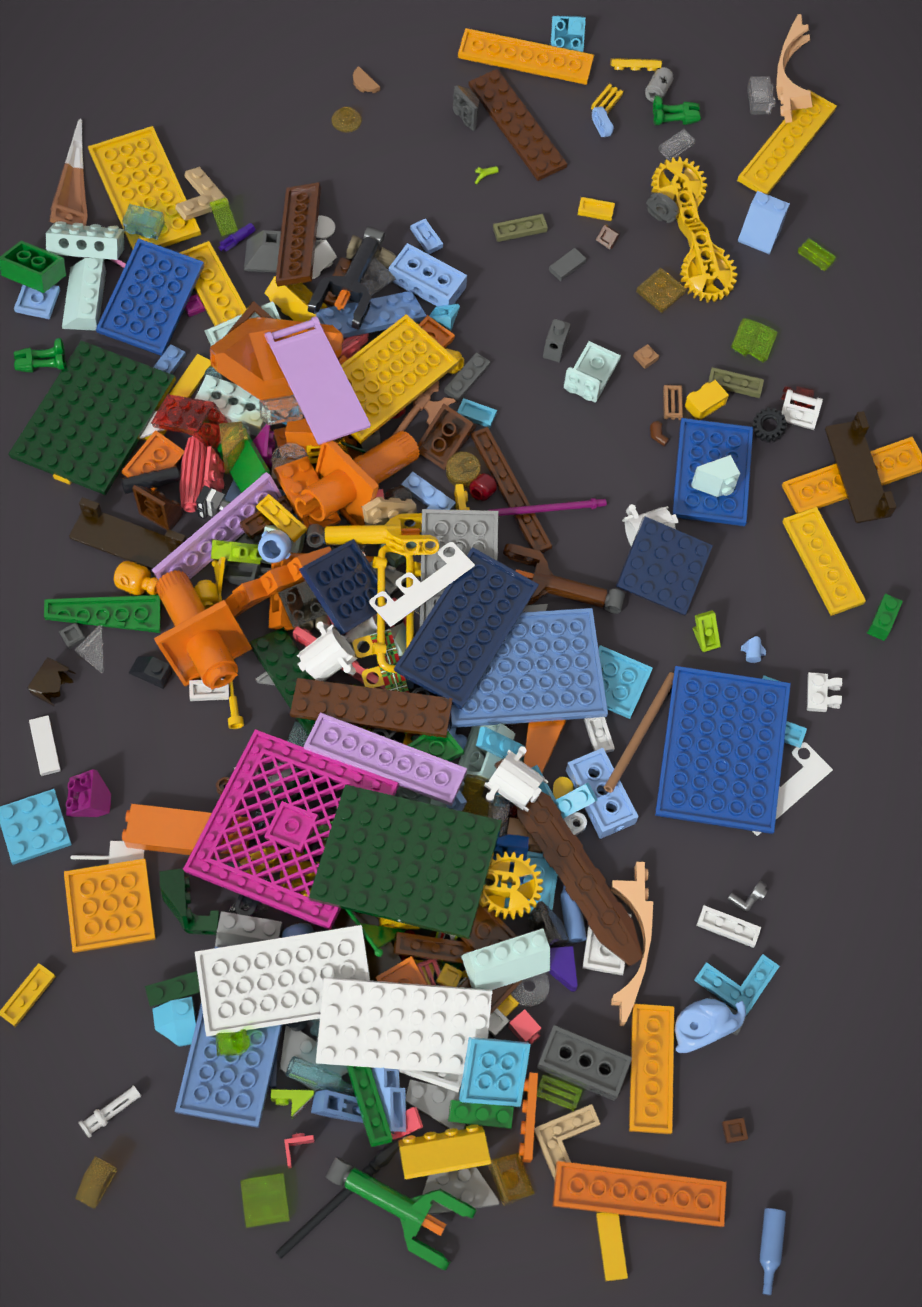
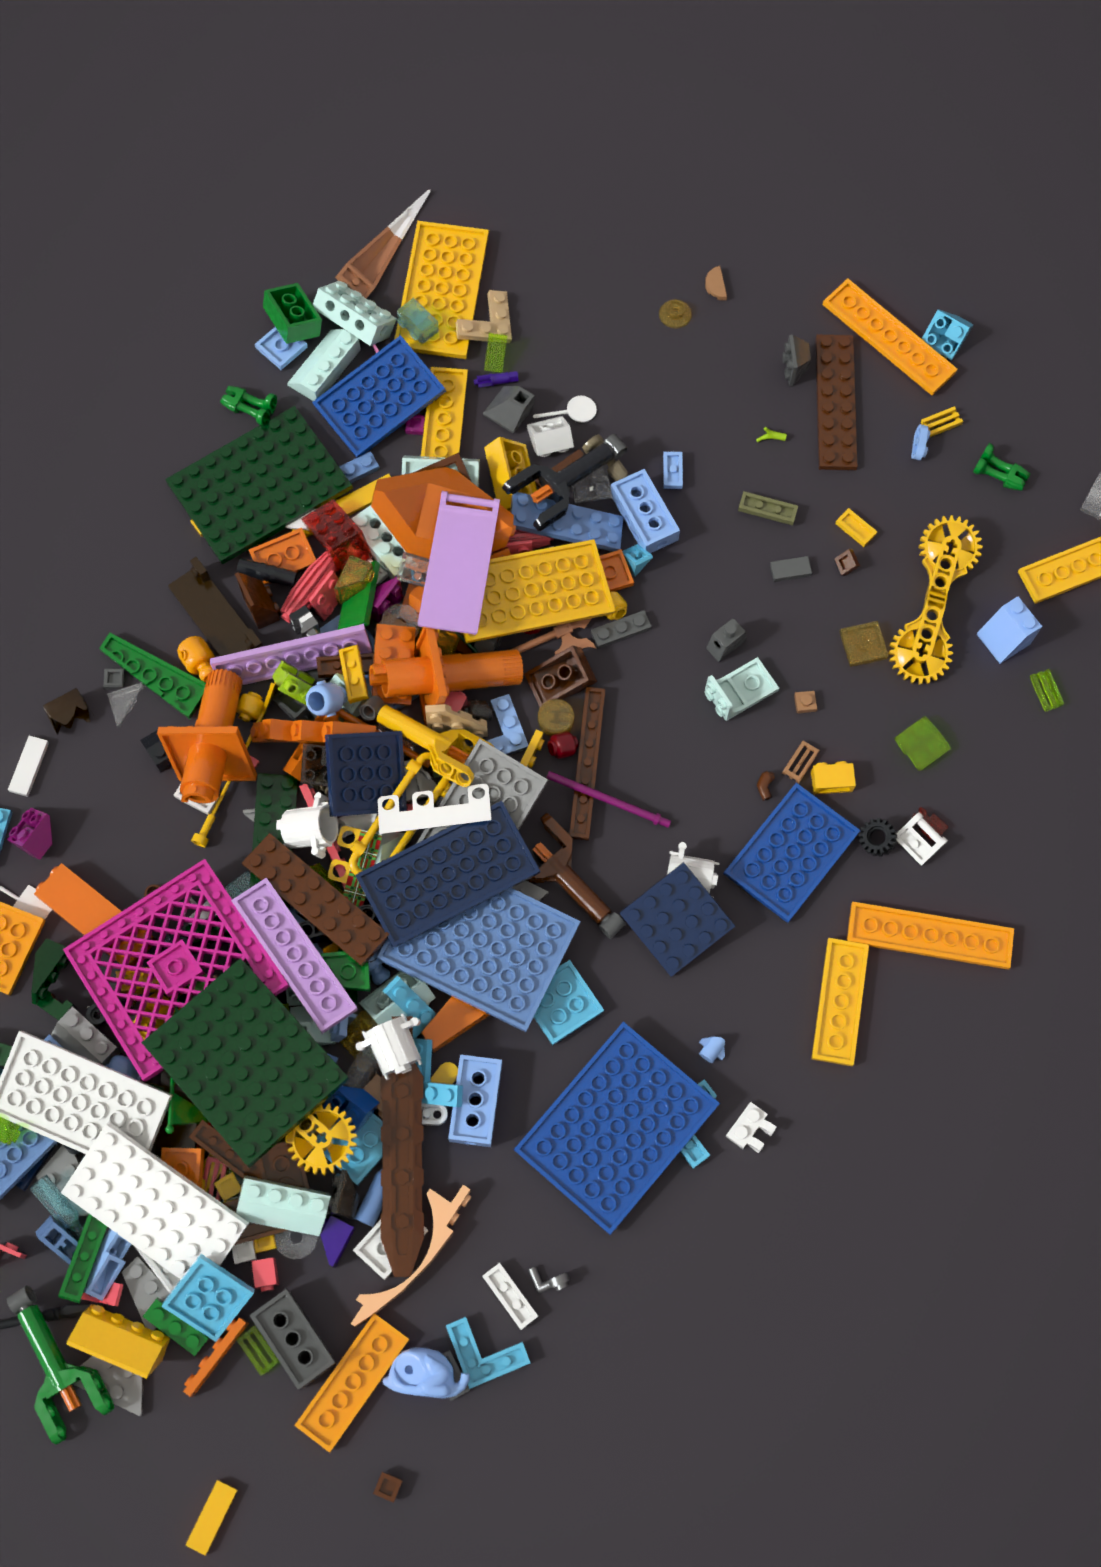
camera: 35 degrees right, 5 degrees up
(298, 234) = (548, 407): reddish brown plate -> none
(299, 1099) = (32, 1213): lime slope -> none
(477, 413) = (606, 669): medium azure tile -> none
(510, 1178) = (163, 1401): clear yellow slope -> none
(554, 1132) = (227, 1384): tan plate -> none
(599, 734) = (512, 1045): white plate -> none
(635, 64) = (994, 399): yellow plate -> none
(639, 734) = (545, 1067): medium nougat piece -> none
(639, 1194) = (264, 1489): orange plate -> none
(657, 202) = (918, 561): dark grey tile -> none
(659, 85) = (1003, 432): light grey piece -> none
(676, 144) = (981, 503): clear plate -> none
(707, 631) = (679, 1005): lime slope -> none
(717, 477) = (784, 862): light aqua slope -> none
(737, 382) = (875, 776): olive plate -> none
(804, 780) = (675, 1202): white piece -> none
(859, 471) = (933, 933): dark brown bracket -> none
(884, 617) = (861, 1091): green brick -> none

